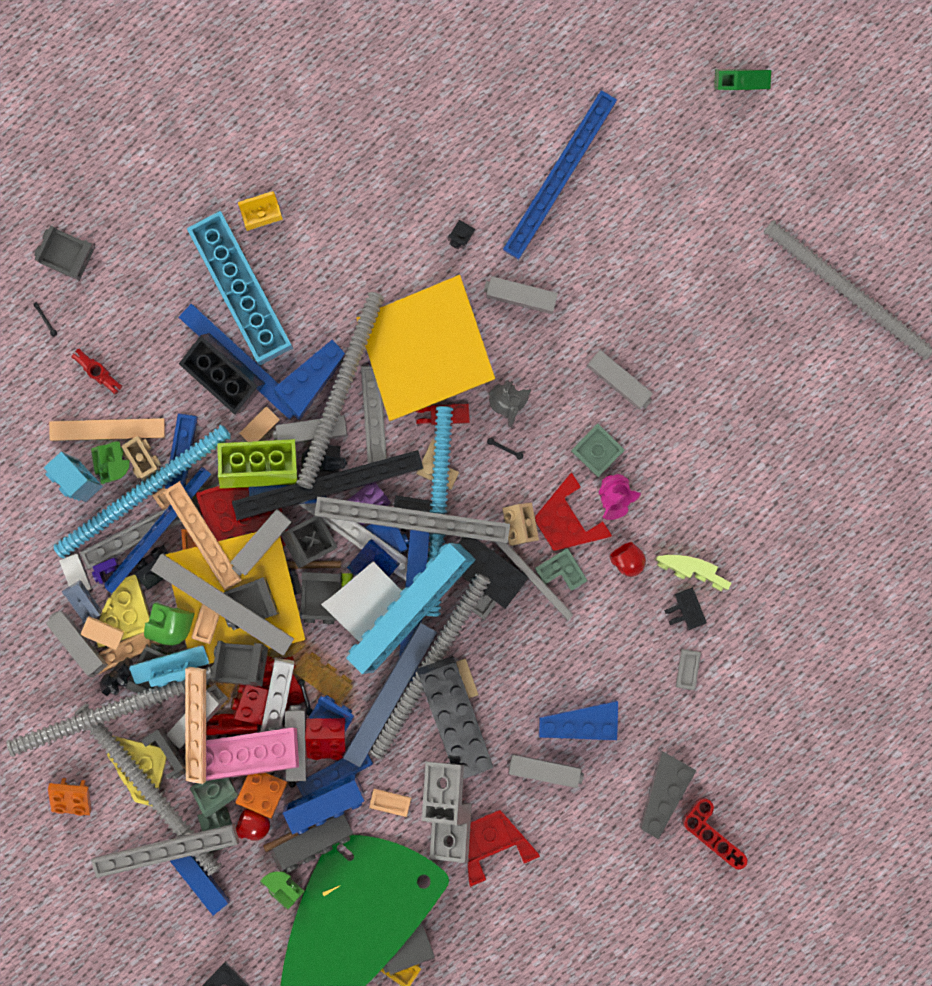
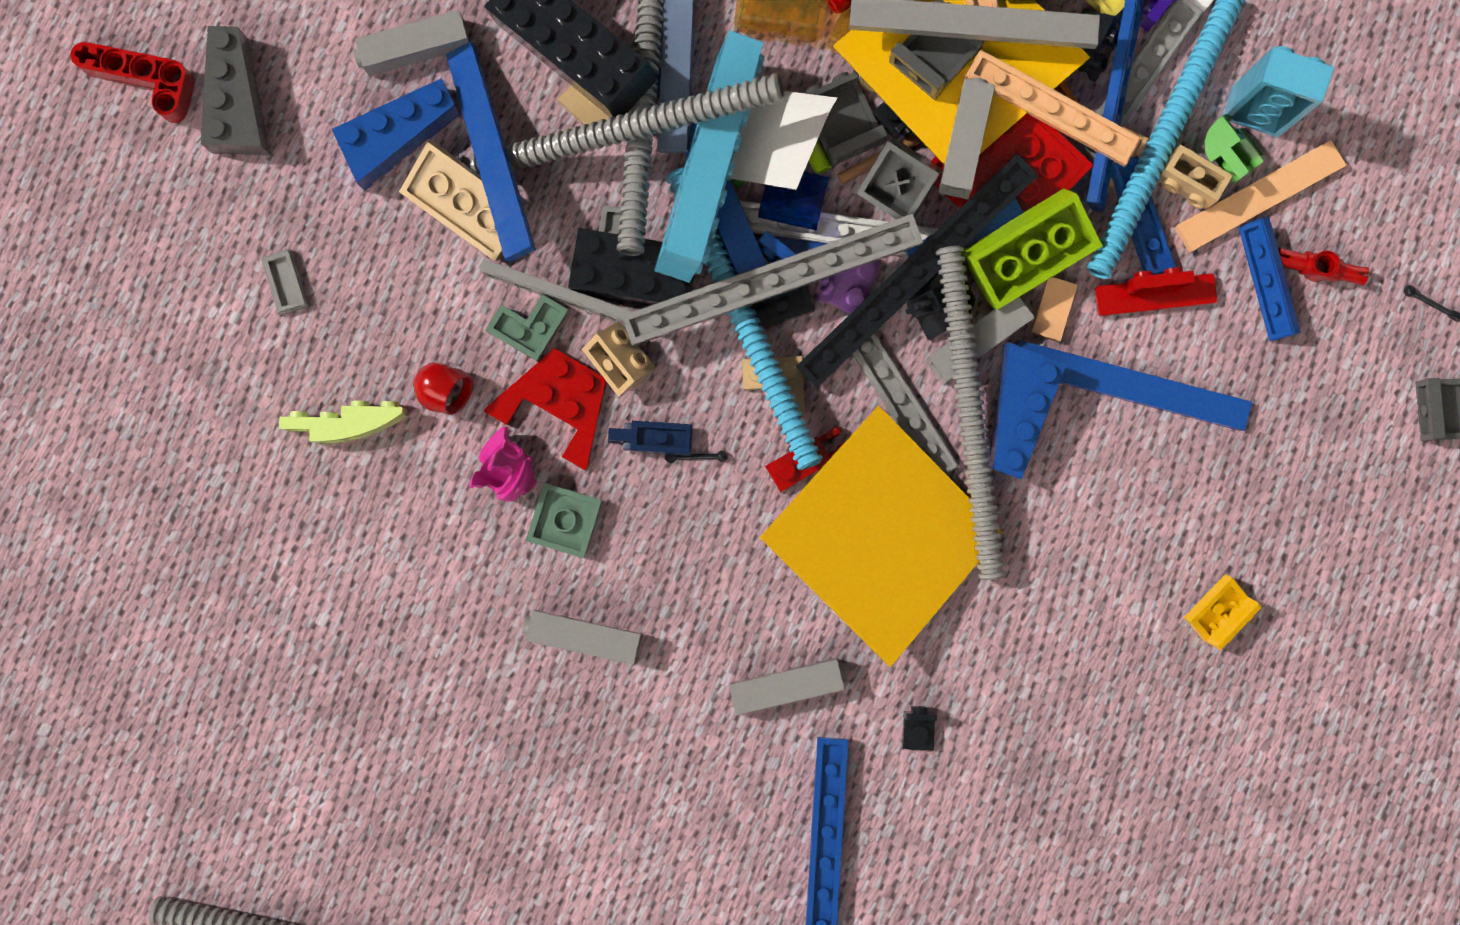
camera: 150 degrees right, 0 degrees up
(130, 379) = (1269, 279): none -> blue tile
(197, 404) = (1156, 292): none -> red bracket
(221, 373) = (1149, 350): black brick -> none
(239, 288) = (1191, 486): medium azure brick -> none
(450, 647) = (644, 122): none -> light grey piece
(508, 401) = (727, 521): dark grey helmet -> none
(523, 470) = (653, 438): none -> dark blue hinge
(533, 679) = (490, 153): none -> blue tile
(562, 661) = (453, 197): none -> tan plate
(690, 609) = (322, 365): black hinge -> none

